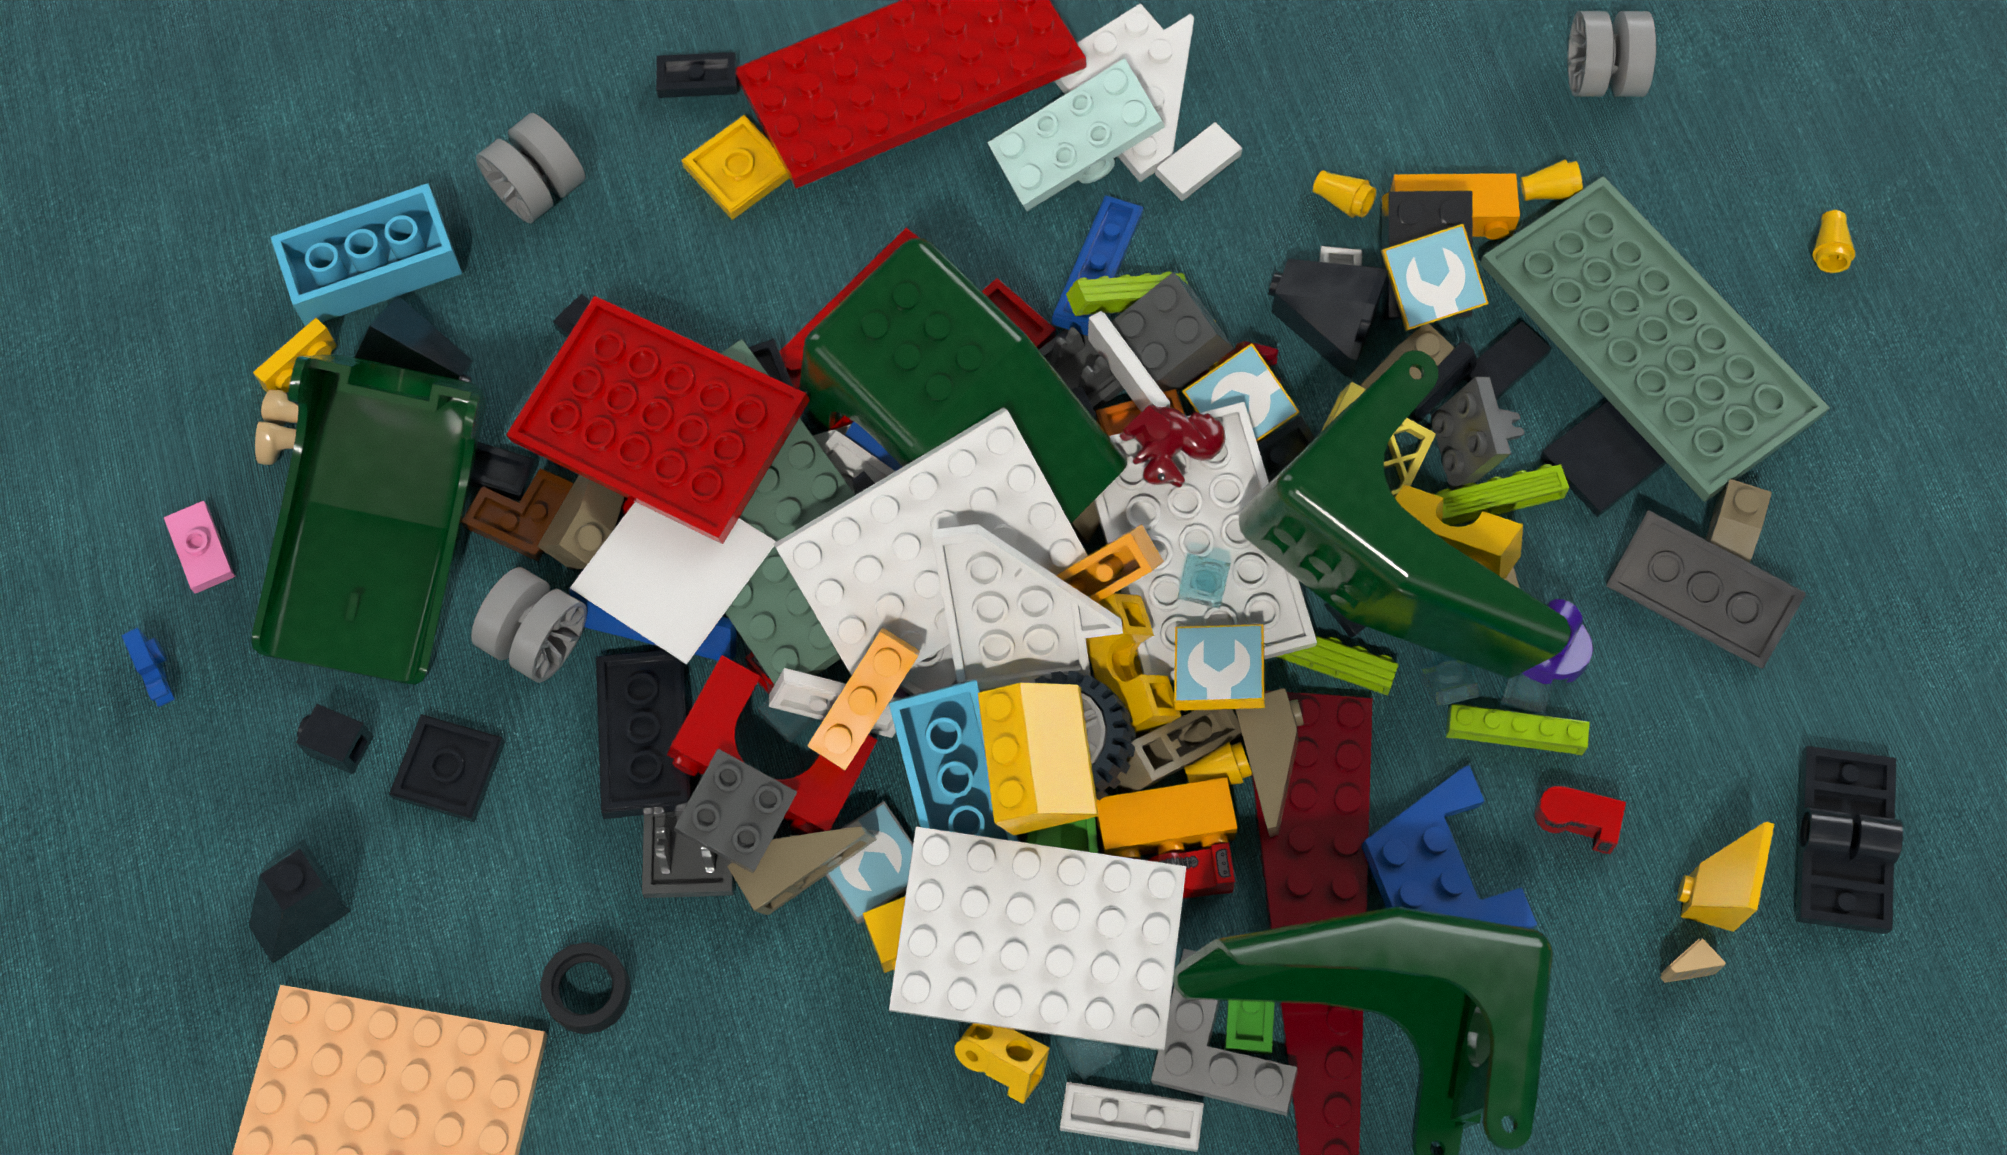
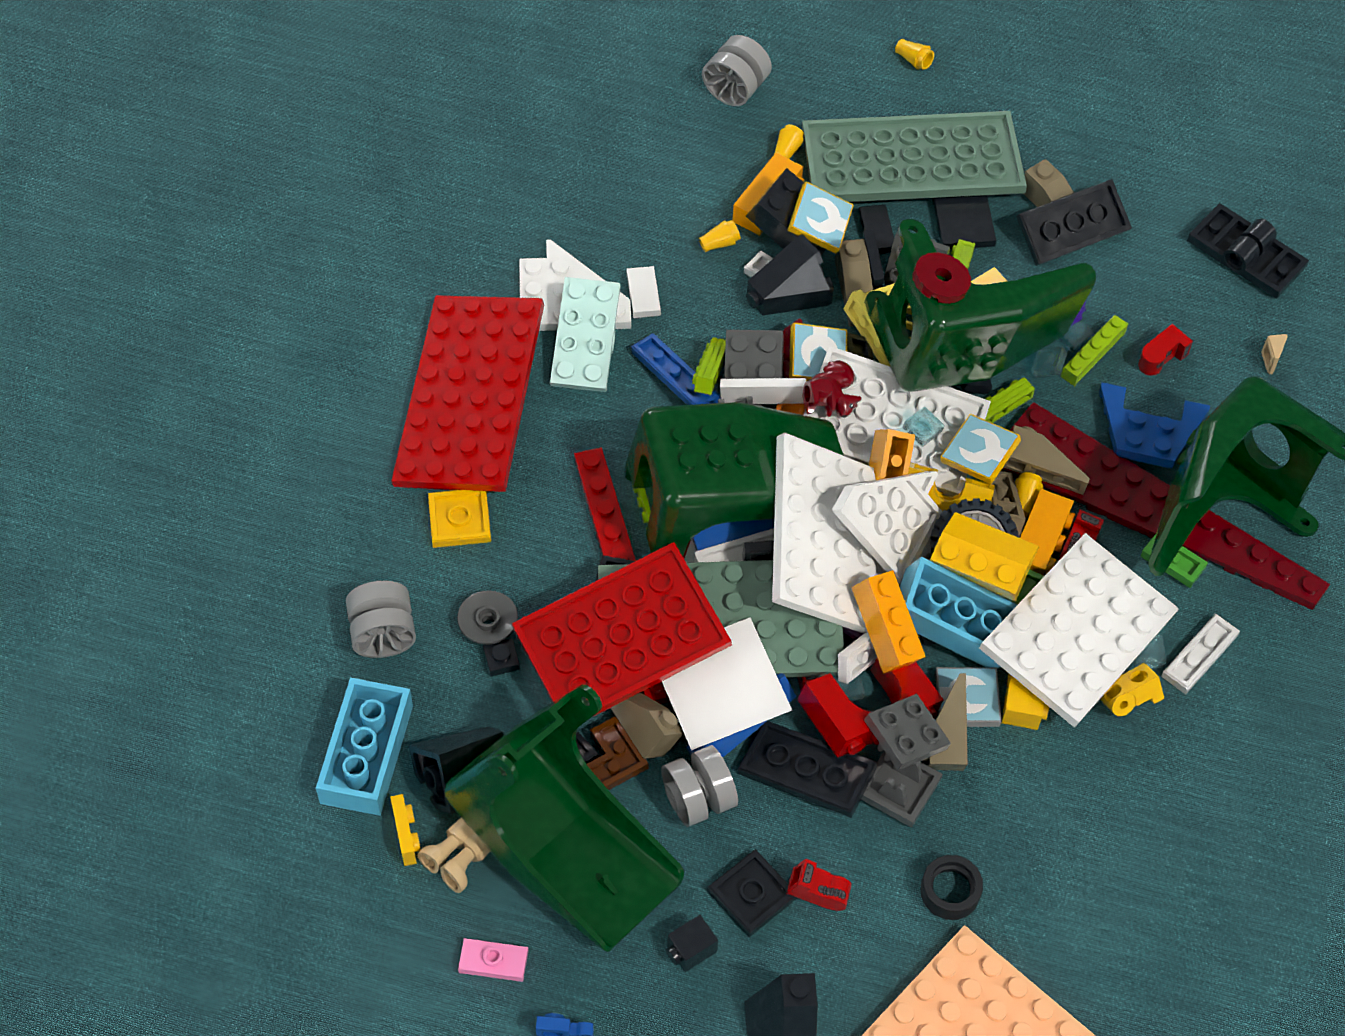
camera: 60 degrees left, 10 degrees down
(489, 837) = (819, 886): none -> red leg
(615, 260) = (484, 607): none -> dark grey dish
(696, 75) = (379, 502): black plate -> none
(1212, 1072) = (1201, 596): light grey plate -> none
(1377, 431) = (943, 265): none -> dark red tile
(1729, 883) = (1244, 305): yellow slope -> none

